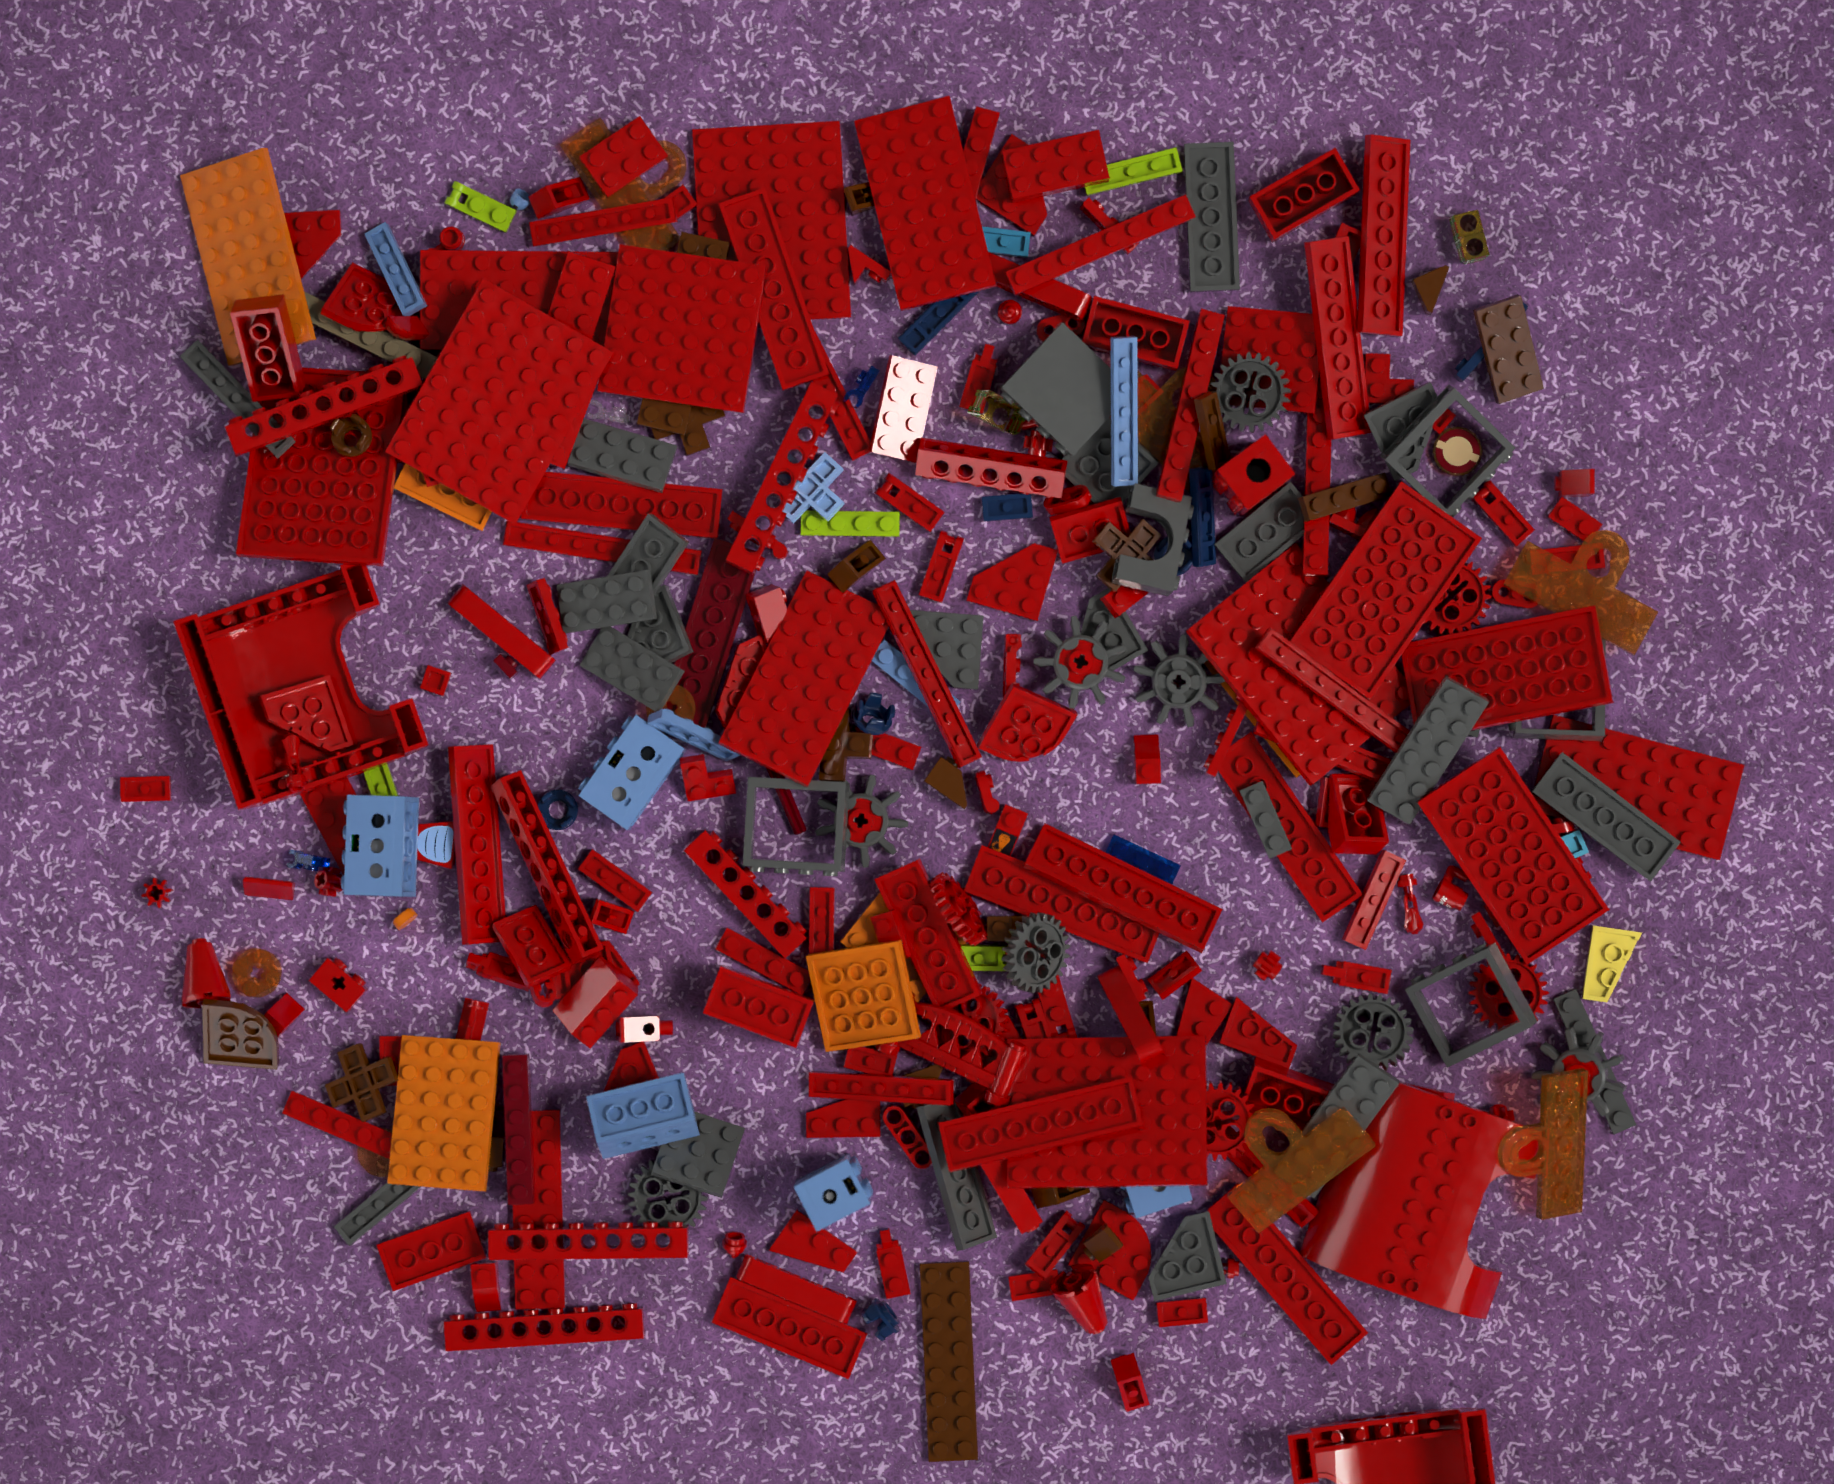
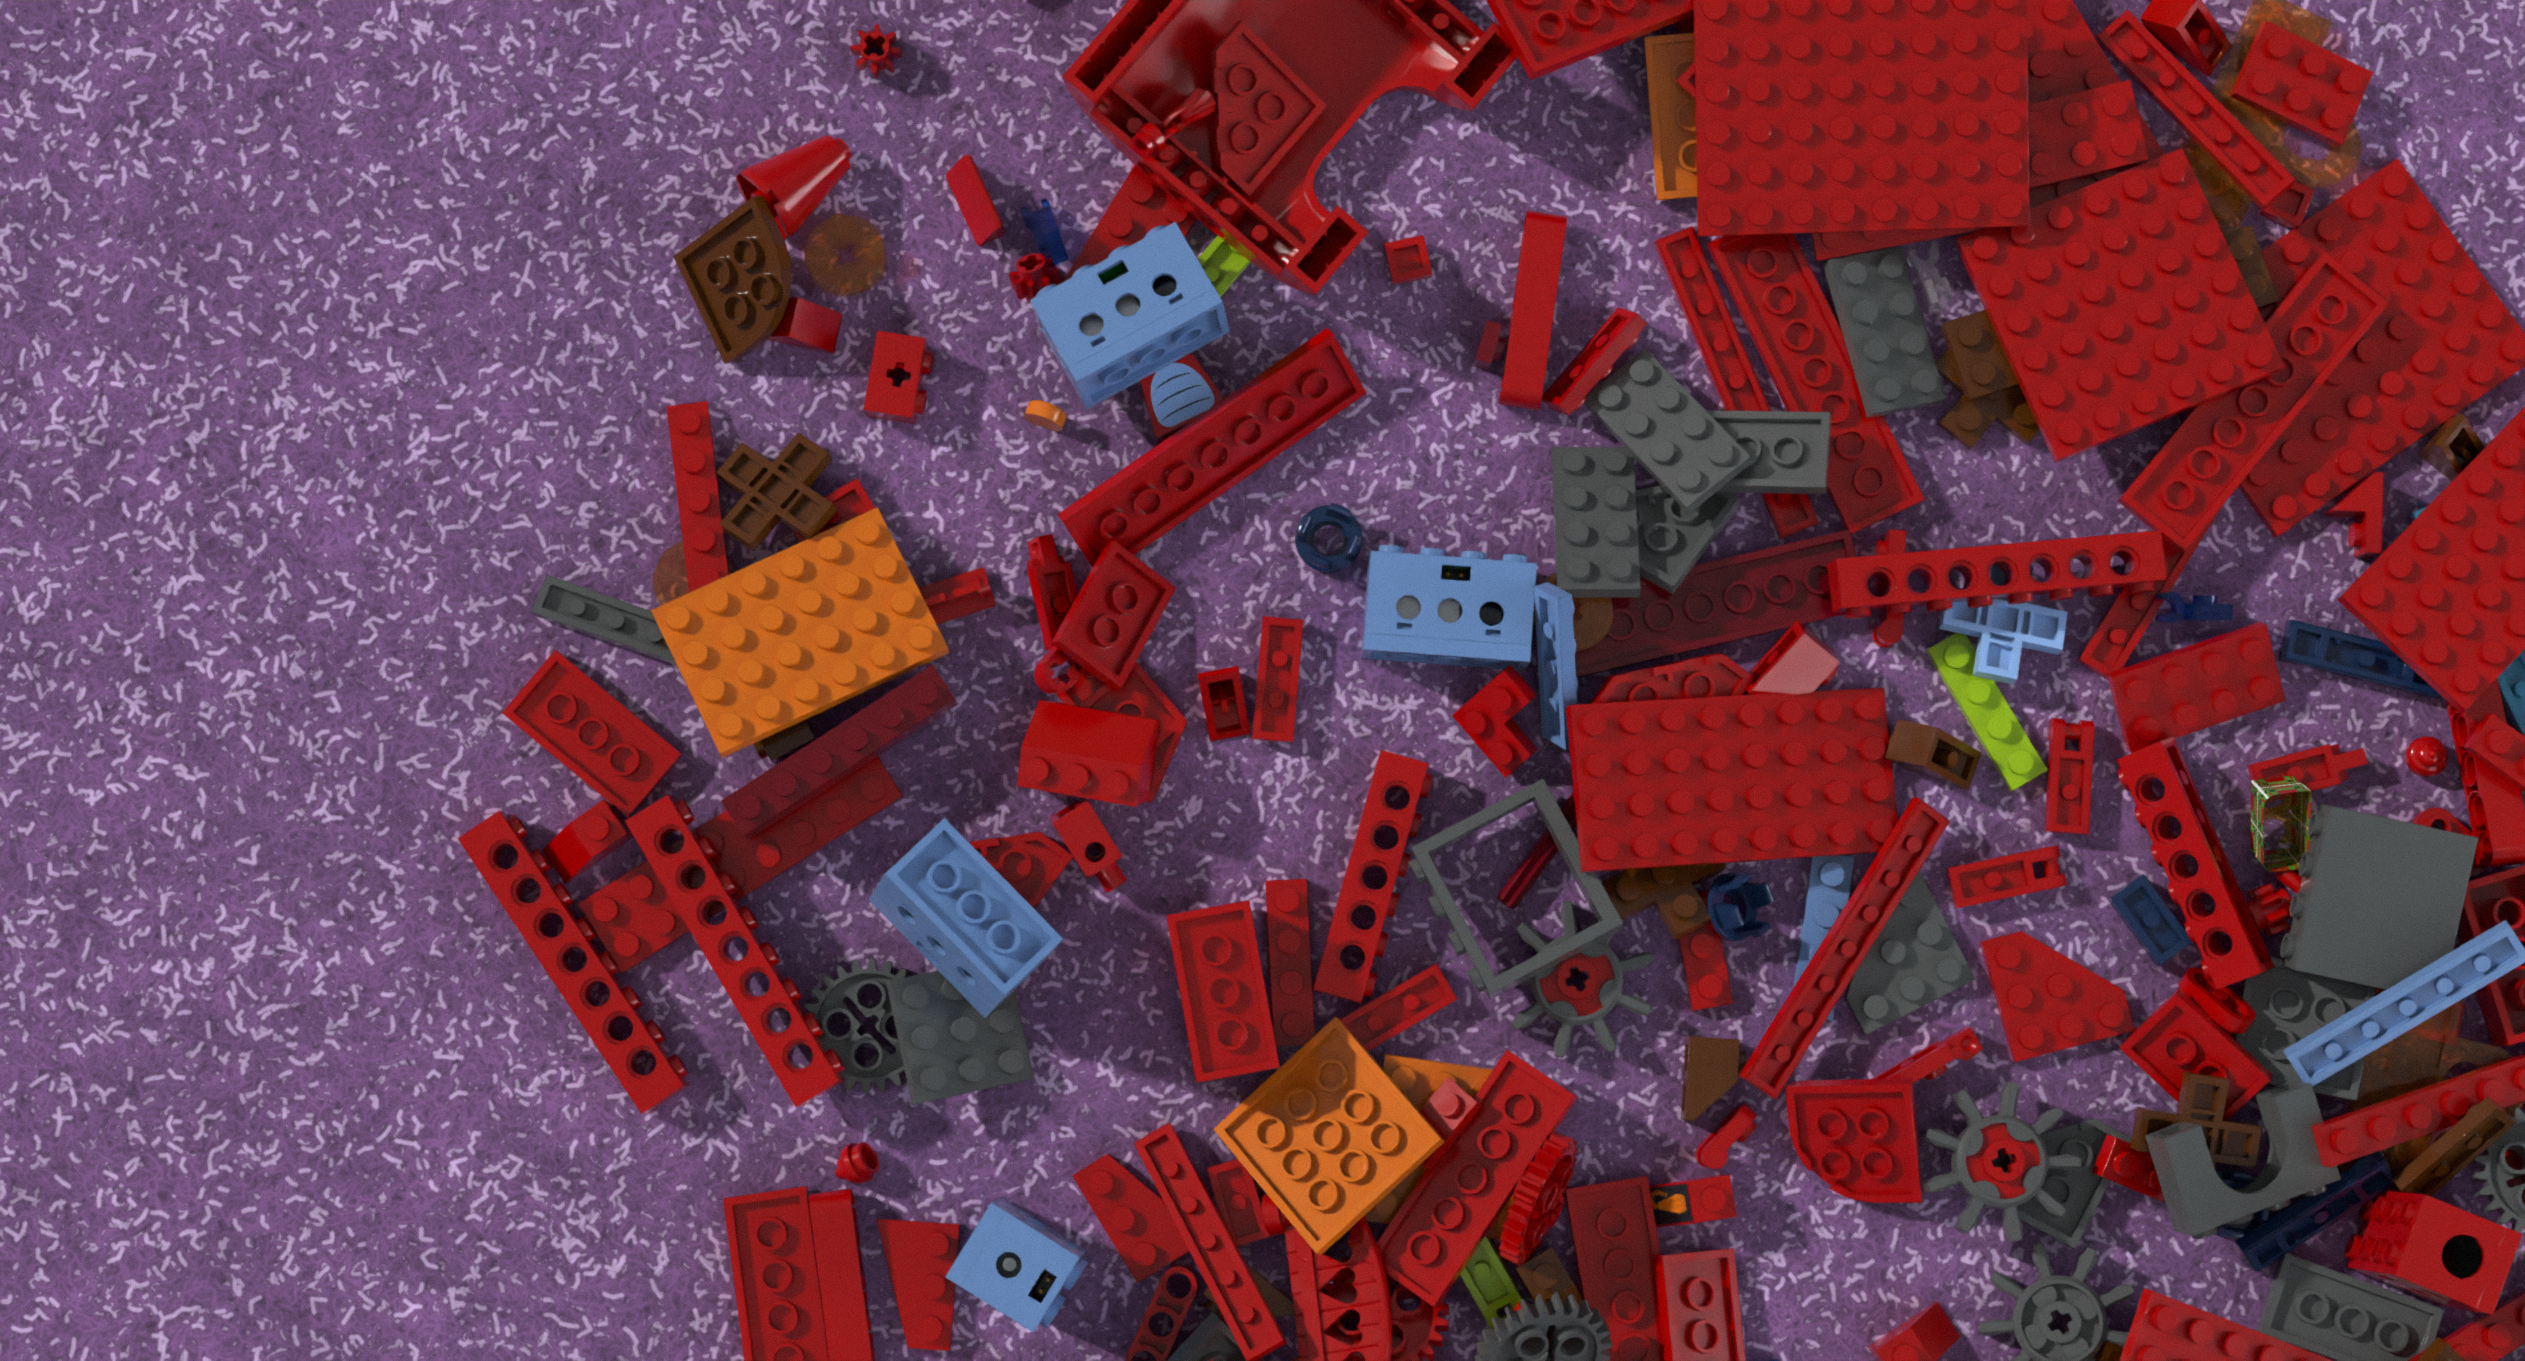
camera: 55 degrees right, 5 degrees down
(546, 867) = (1239, 570): red brick -> none

